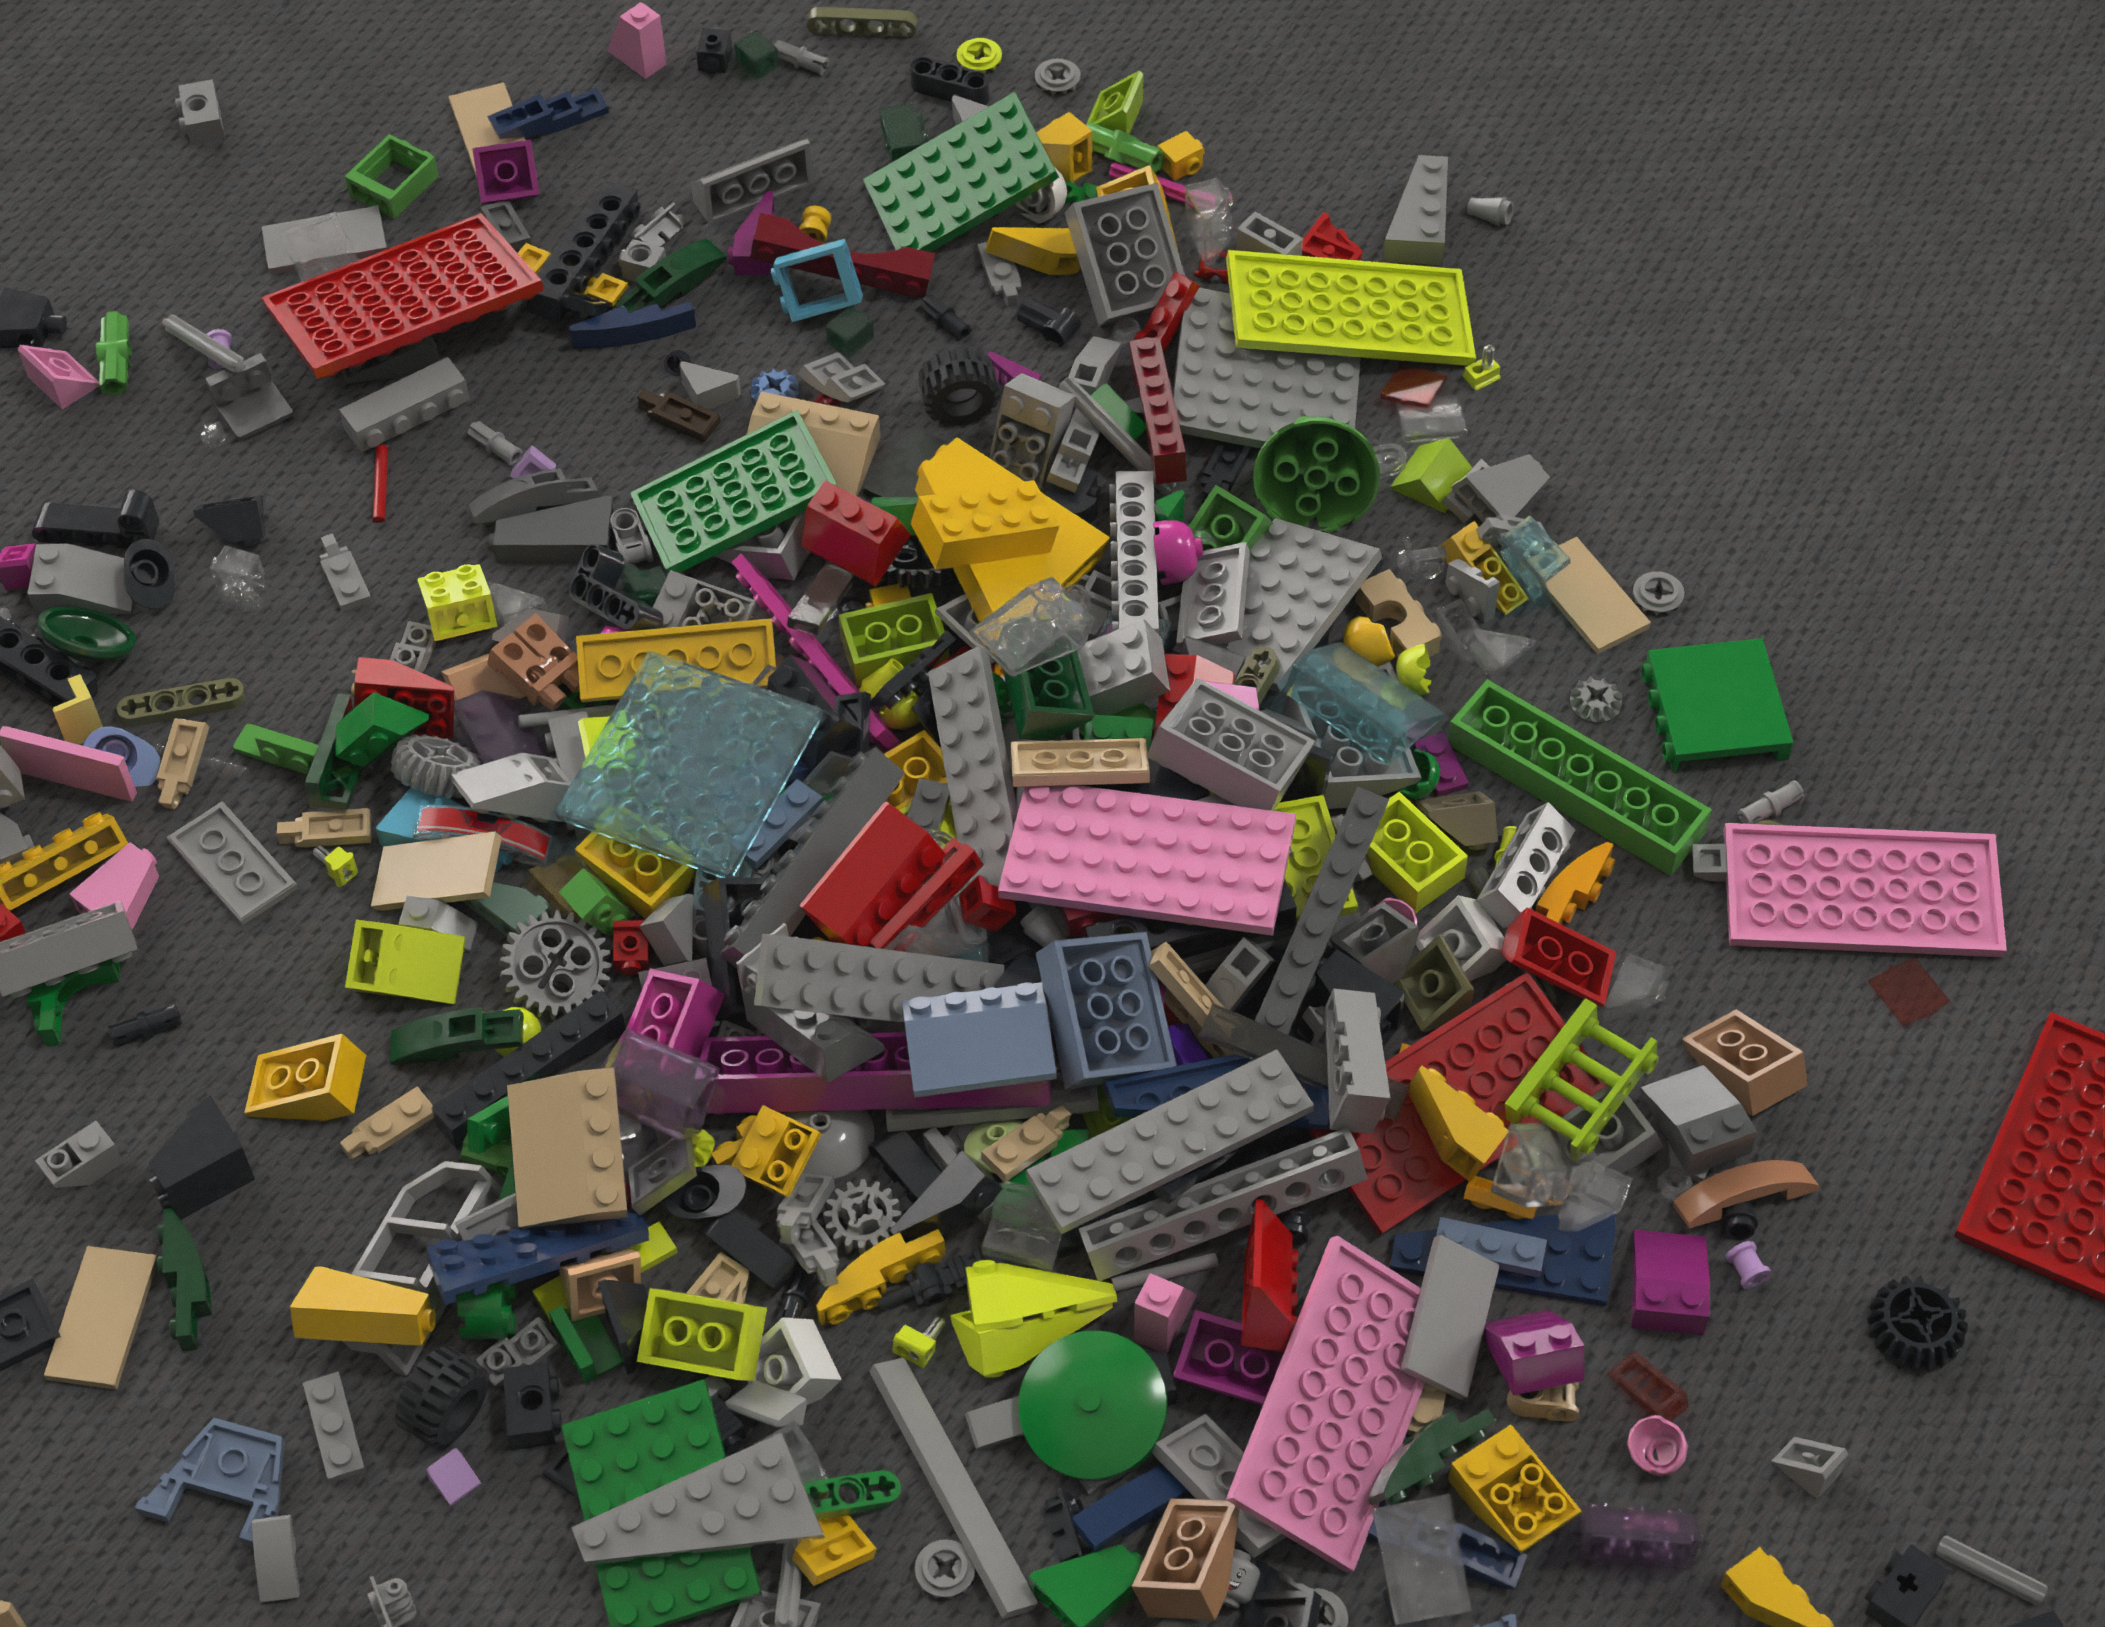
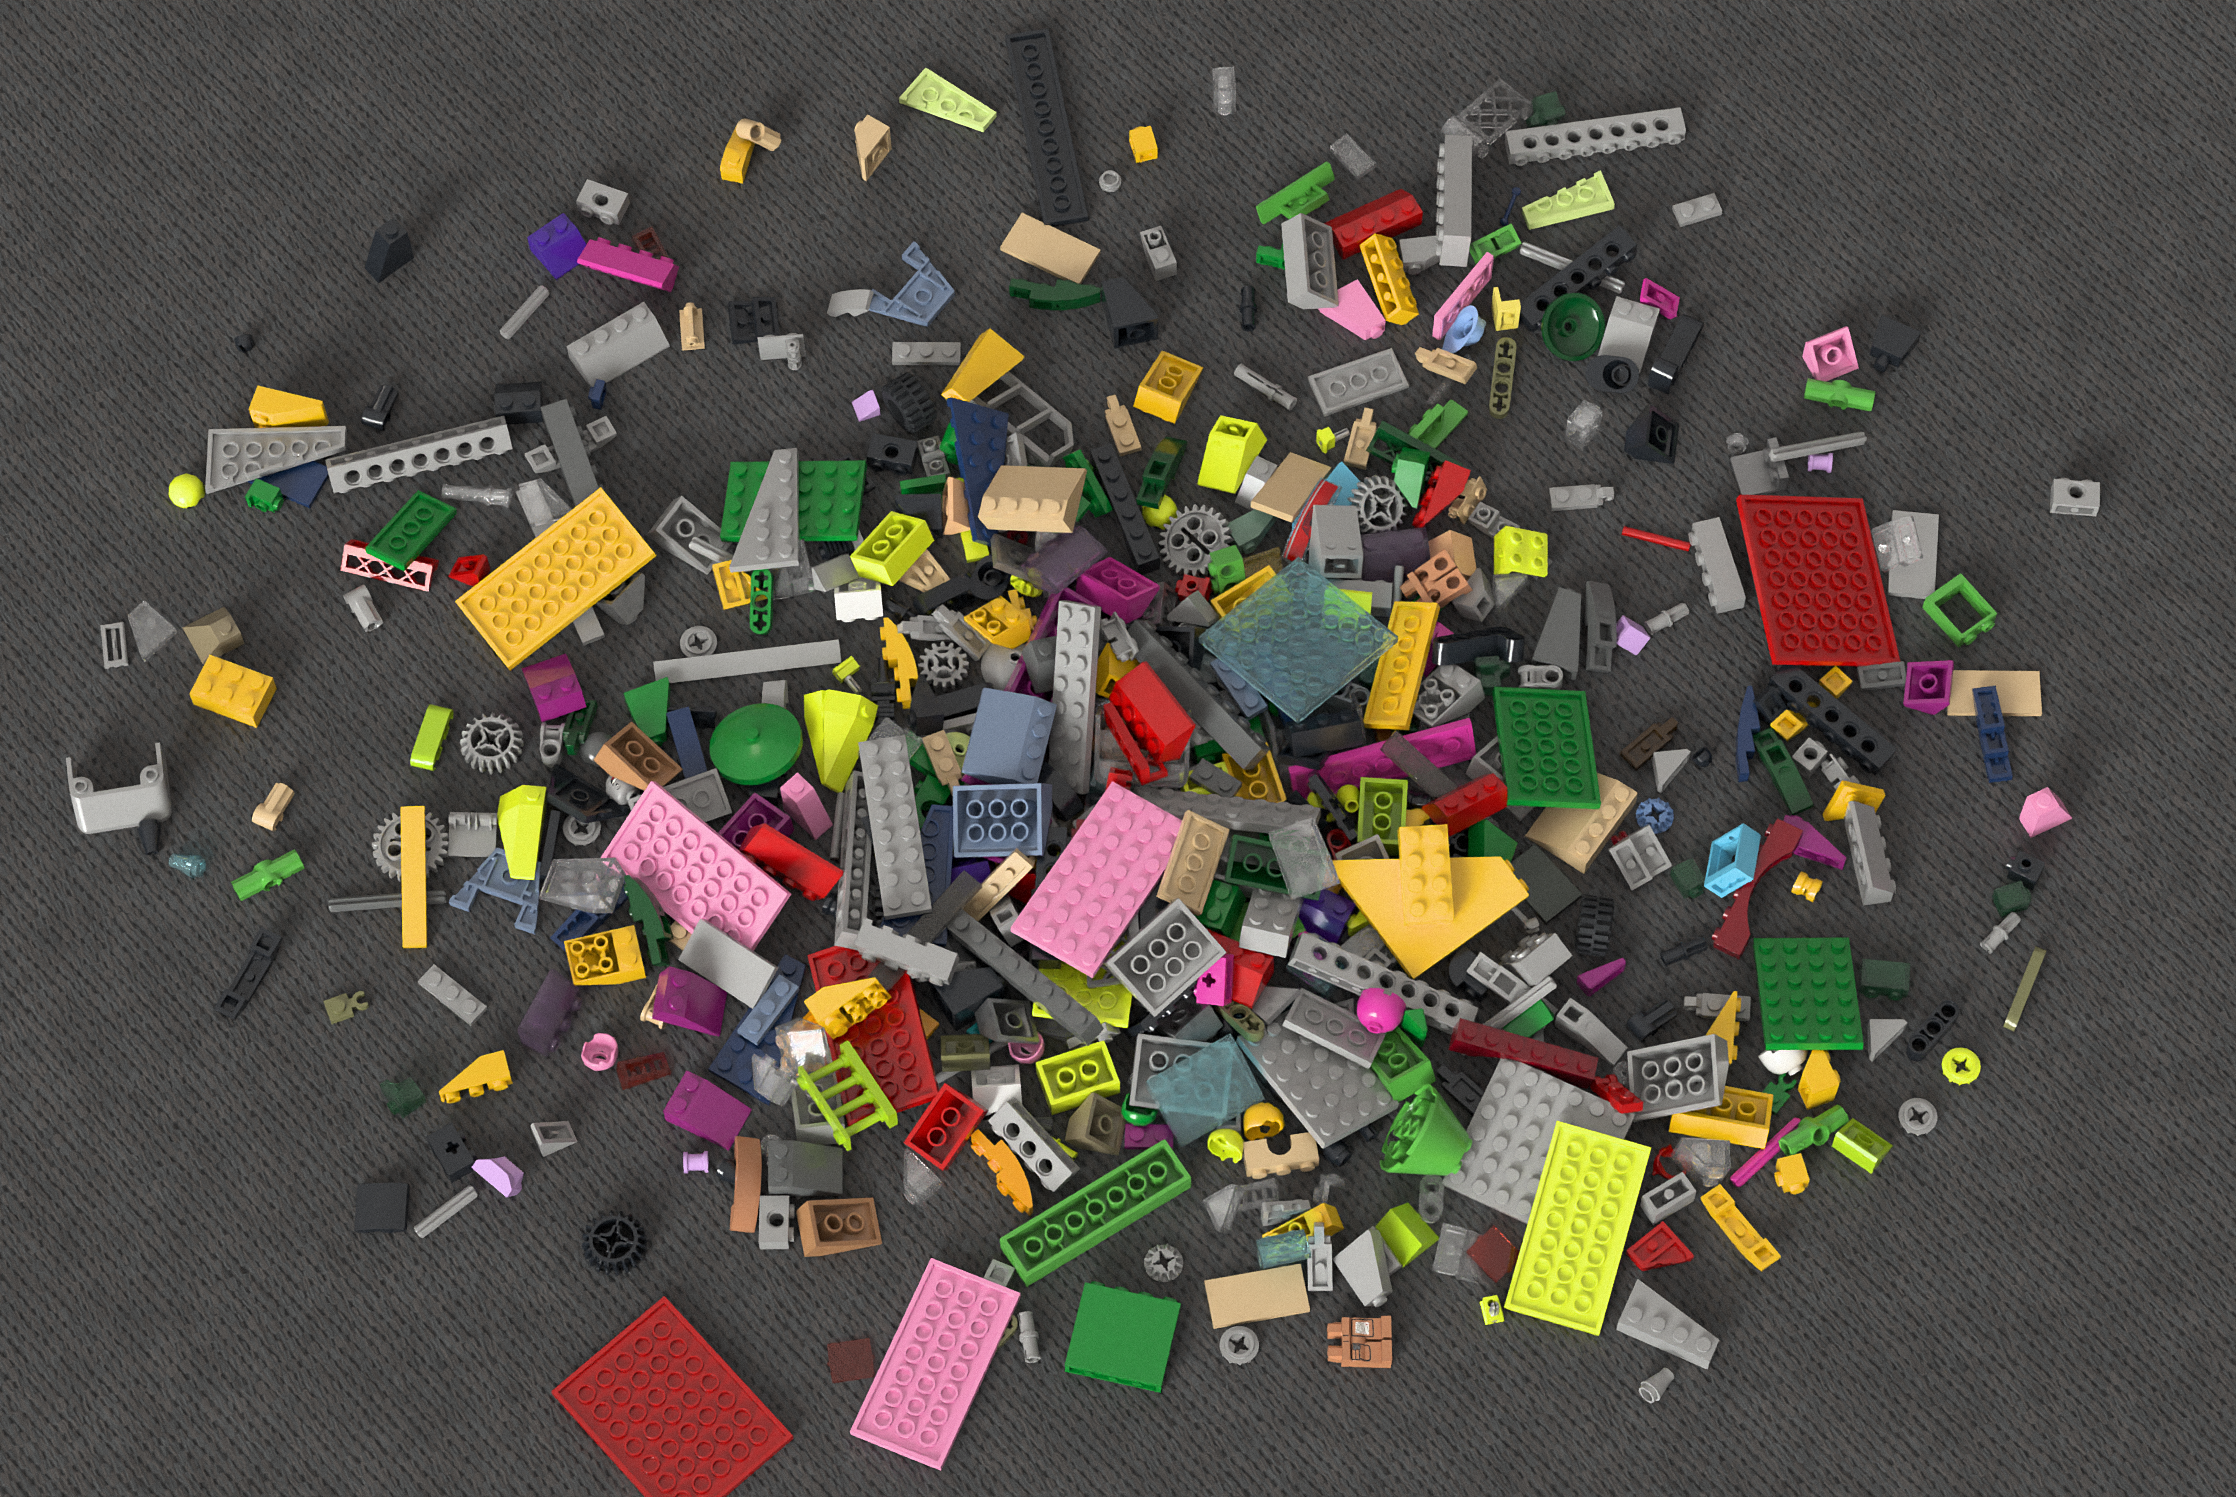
camera: 110 degrees right, 10 degrees up
(277, 954) = (1273, 391): none -> light grey pin
(683, 201) = (1848, 792): none -> yellow wing
(1275, 181) = (1738, 1229): none -> yellow slope
(1589, 473) = (1363, 1342): none -> nougat hips
(1799, 1125) = (771, 1209): none -> light grey brick
(1901, 1513) = (500, 1174): none -> lavender slope

